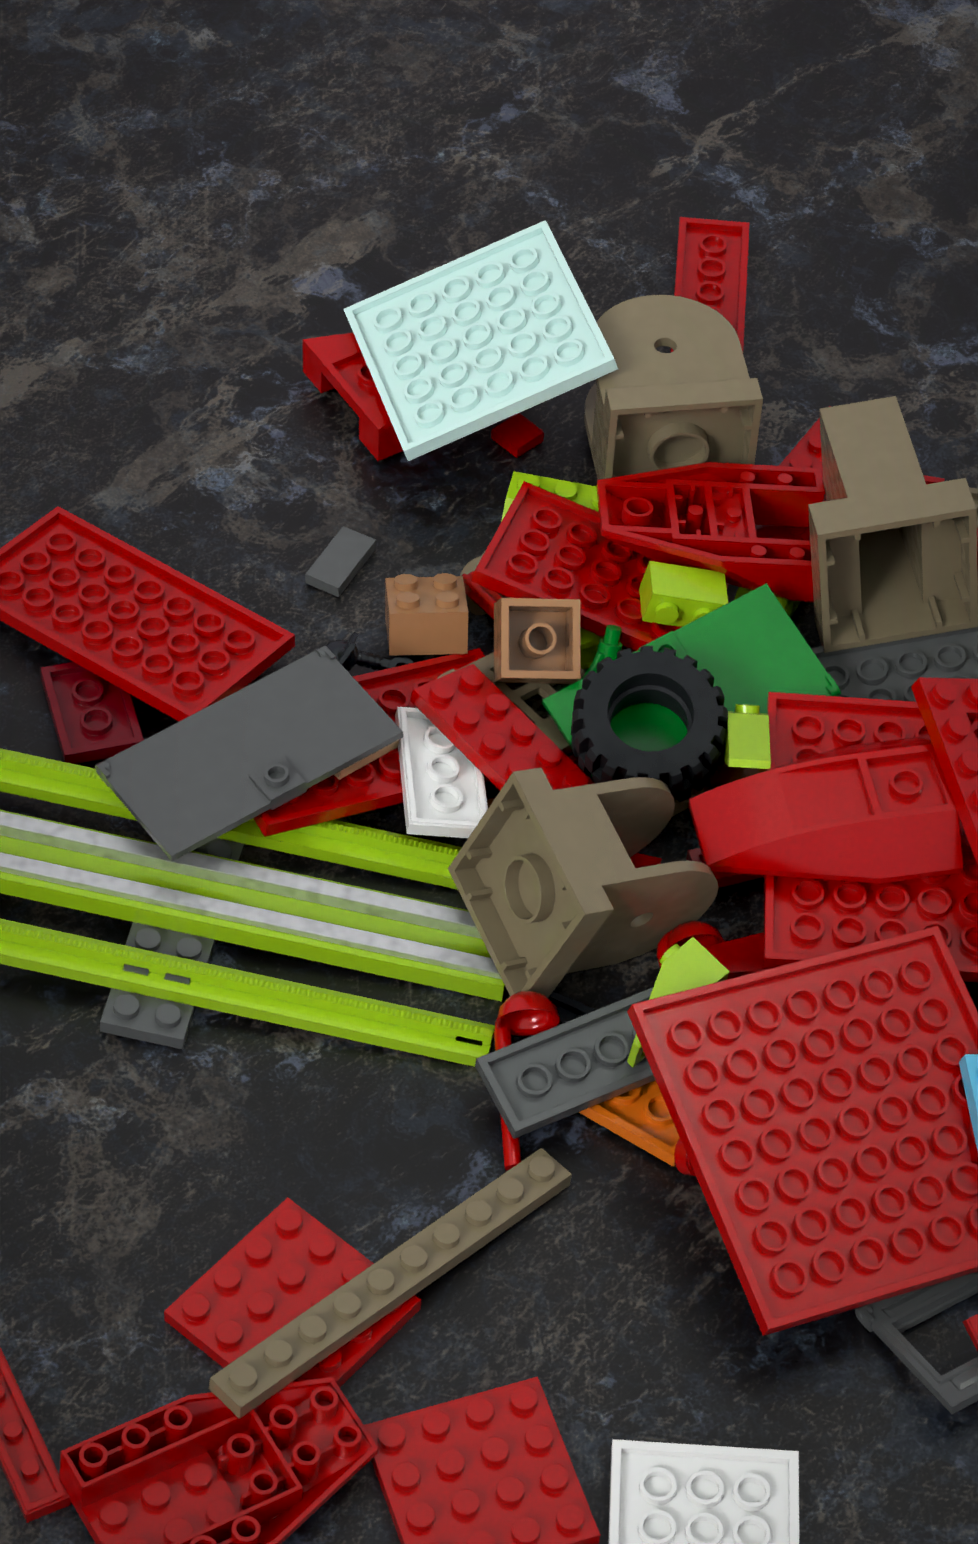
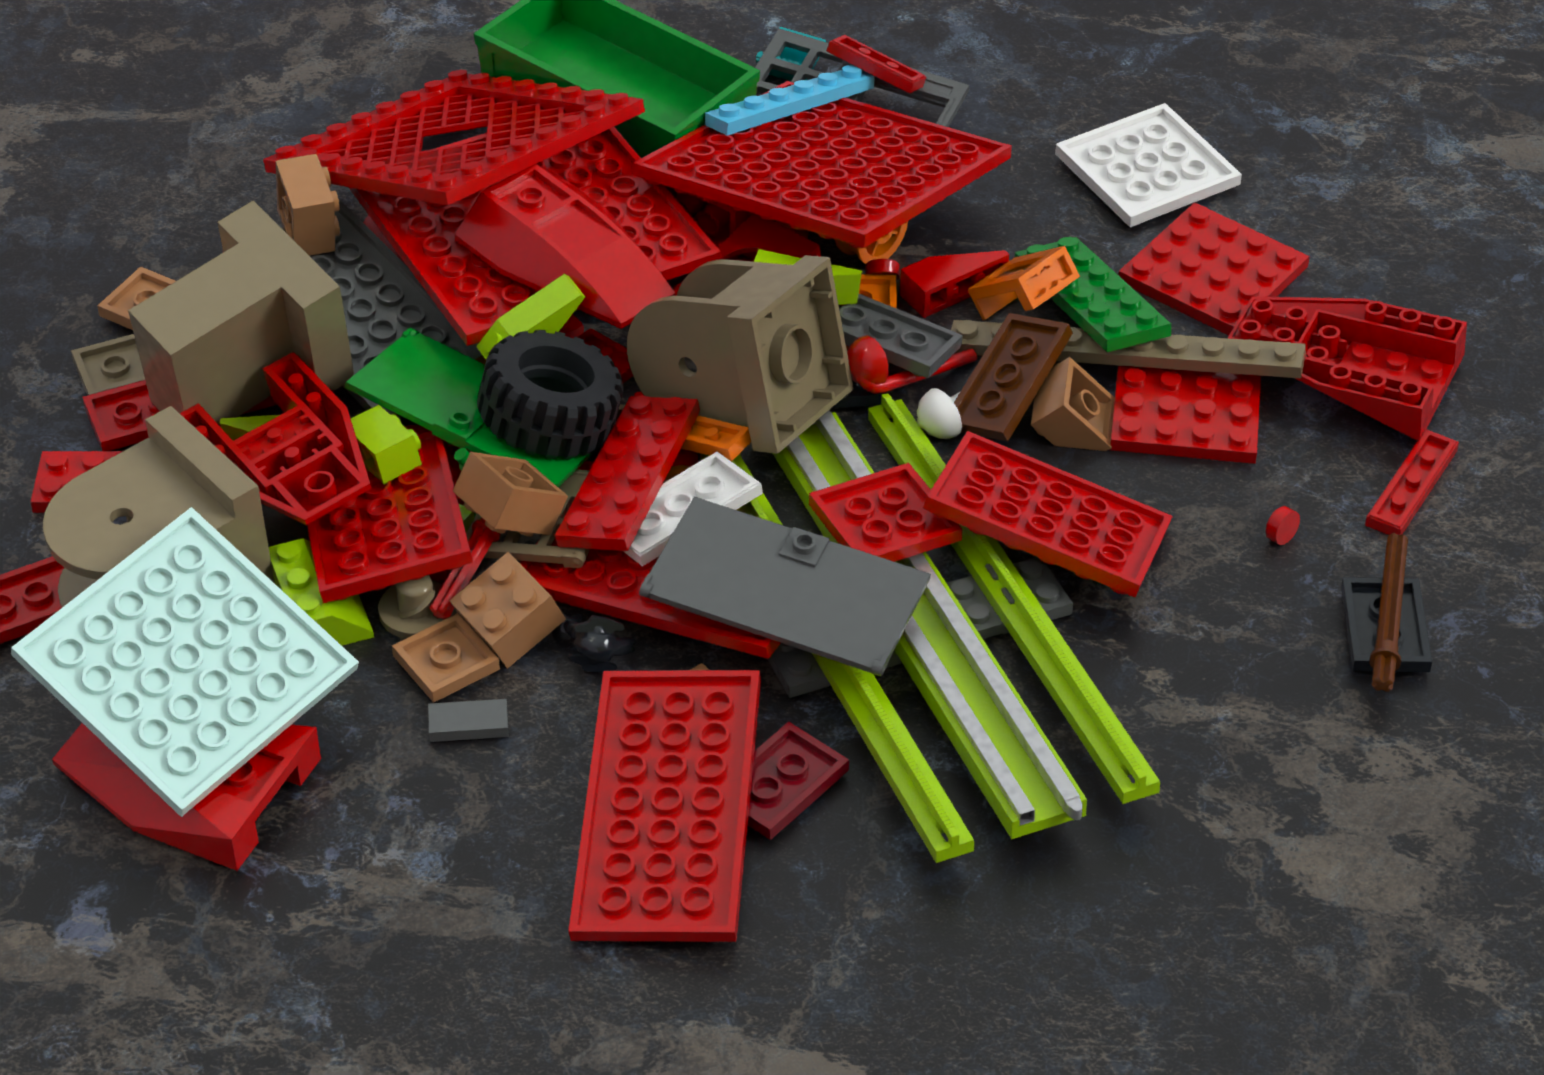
camera: 120 degrees left, 5 degrees down
(49, 1259) = (1282, 525): none -> red tile
(200, 1037) = (1048, 513): none -> red plate
(295, 899) = (884, 514): none -> red plate
(352, 1186) = (1073, 409): none -> medium nougat slope
(418, 558) = (445, 657): none -> medium nougat plate
(427, 1139) = (1010, 375): none -> reddish brown plate
(431, 1060) = (939, 414): none -> white piece
(500, 1298) = (1104, 302): none -> green plate
(528, 1238) = (1044, 276): none -> orange panel
(637, 1197) = (945, 279): none -> red slope

